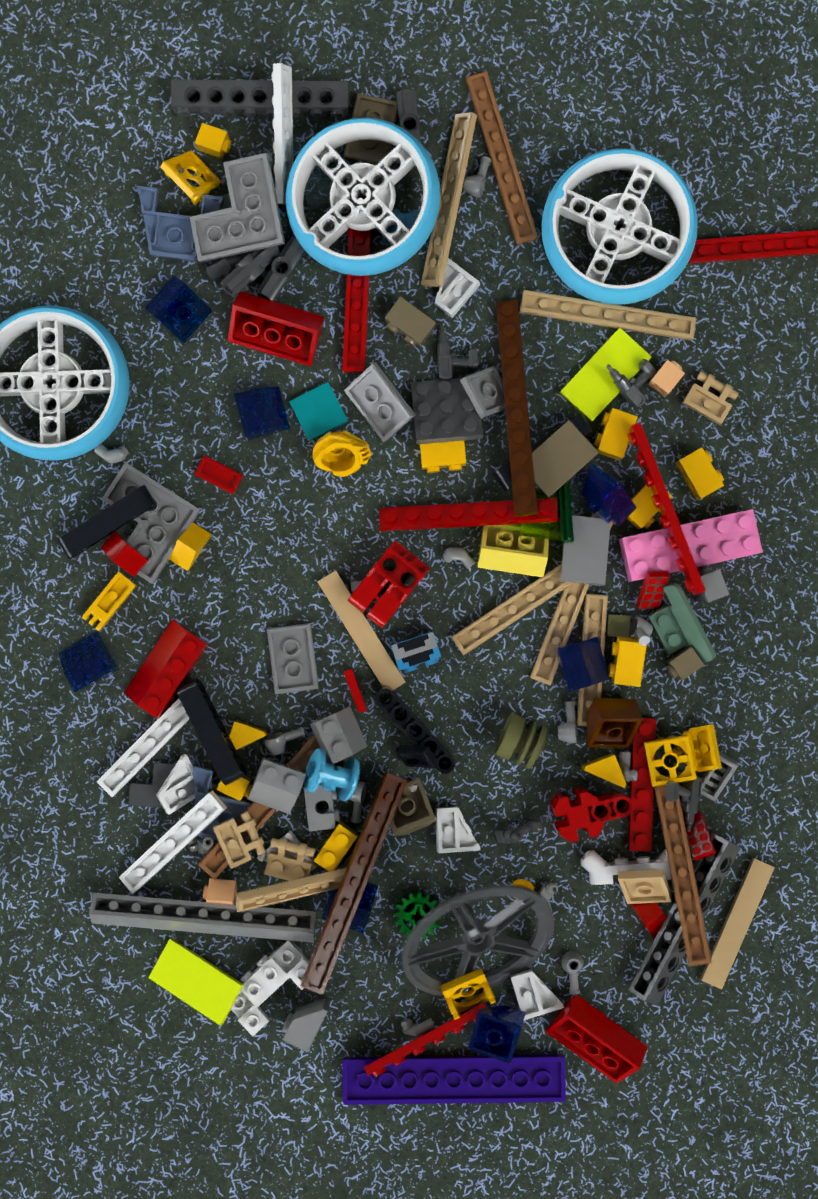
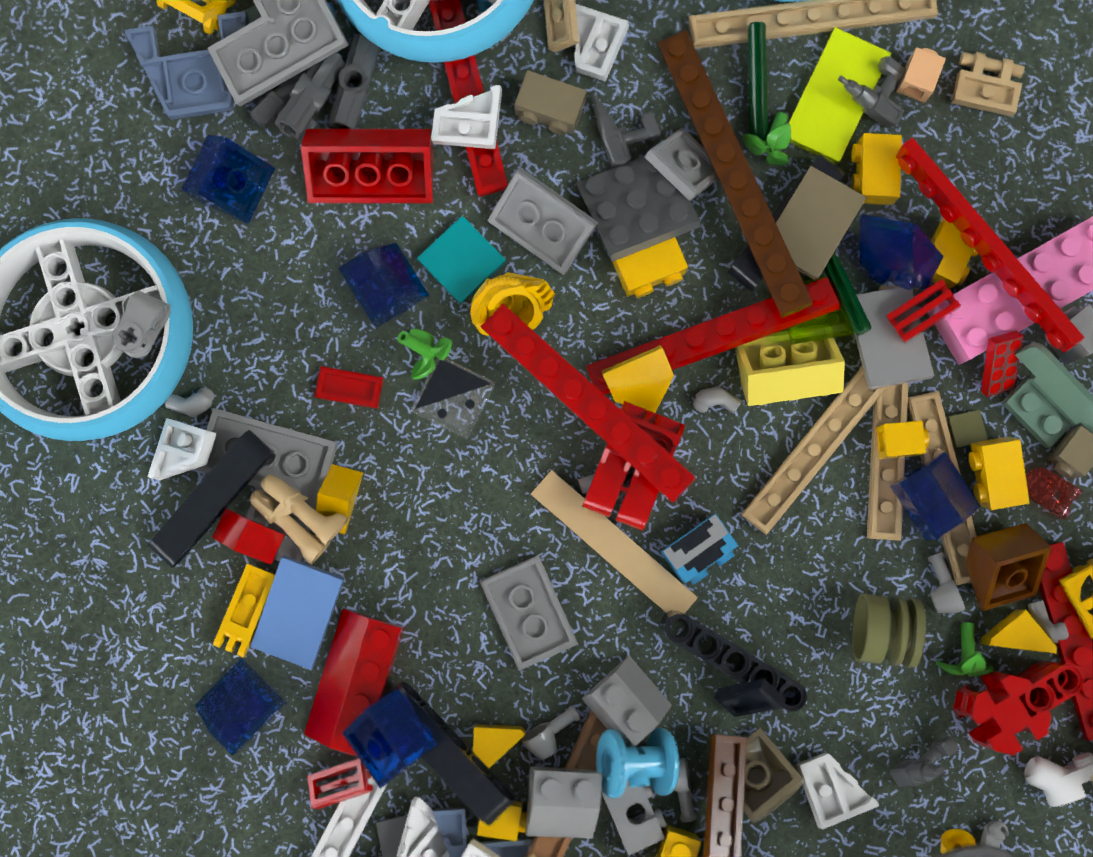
camera: 15 degrees left, 5 degrees down
(95, 393) = (141, 320): none -> light grey piece
(96, 483) = (180, 449): none -> white wing
(134, 722) = (362, 777): none -> tile
(142, 613) = (297, 612): none -> medium blue tile
(152, 537) = (283, 500): none -> tan piece
(177, 710) = (389, 737): none -> clear blue slope
(275, 460) = (423, 343): none -> bright green plant
(285, 502) = (453, 397): none -> tile
(351, 319) = (469, 121): none -> white wing
(355, 690) = (631, 631): red tile -> none
(369, 534) = (588, 403): none -> red plate
(411, 529) = (640, 379): none -> yellow slope
(551, 395) = (777, 139): none -> bright green plant
(554, 351) = (757, 79): none -> dark green axle
(569, 776) = (972, 662): none -> bright green plant
(571, 620) = (902, 439): none -> yellow brick
(594, 553) = (946, 295): none -> red tile
(643, 630) = (1004, 424): light grey bar -> none
(654, 677) = (1042, 486): none -> clear red plate
(700, 473) = (1009, 188): yellow brick -> none

